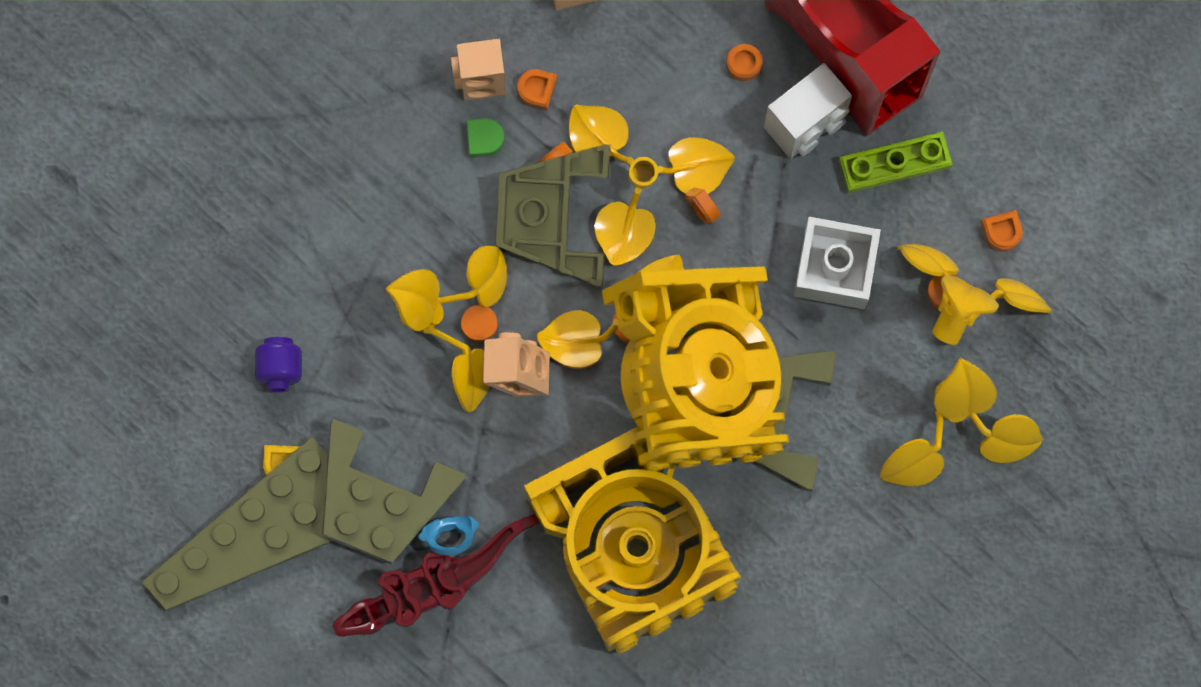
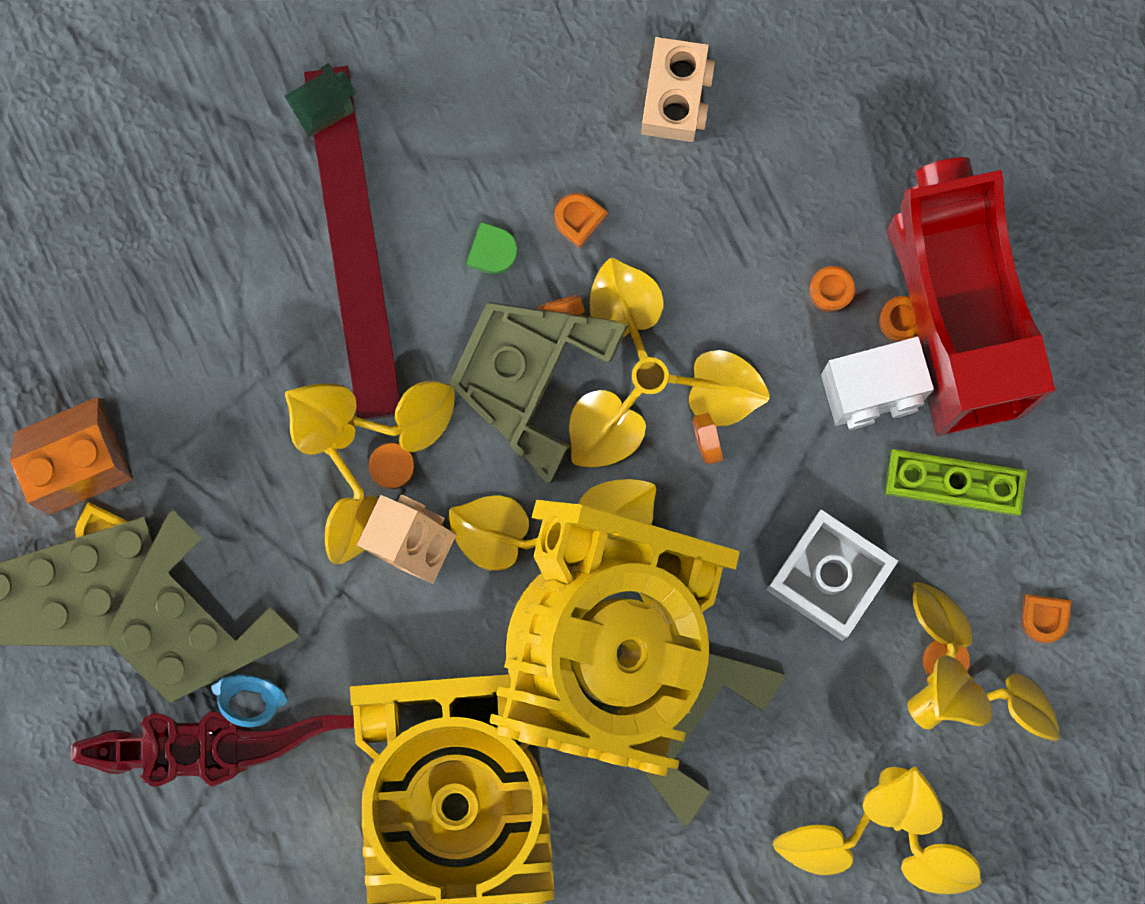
camera: 25 degrees right, 5 degrees up
(239, 415) = (68, 458): none -> orange slope
(278, 364) = (141, 416): dark purple head -> none
(312, 80) = (322, 100): none -> clear green bracket
(377, 172) = (356, 265): none -> dark red tile
(479, 69) = (518, 170): light nougat brick -> none
(801, 62) = (898, 319): none -> orange tile

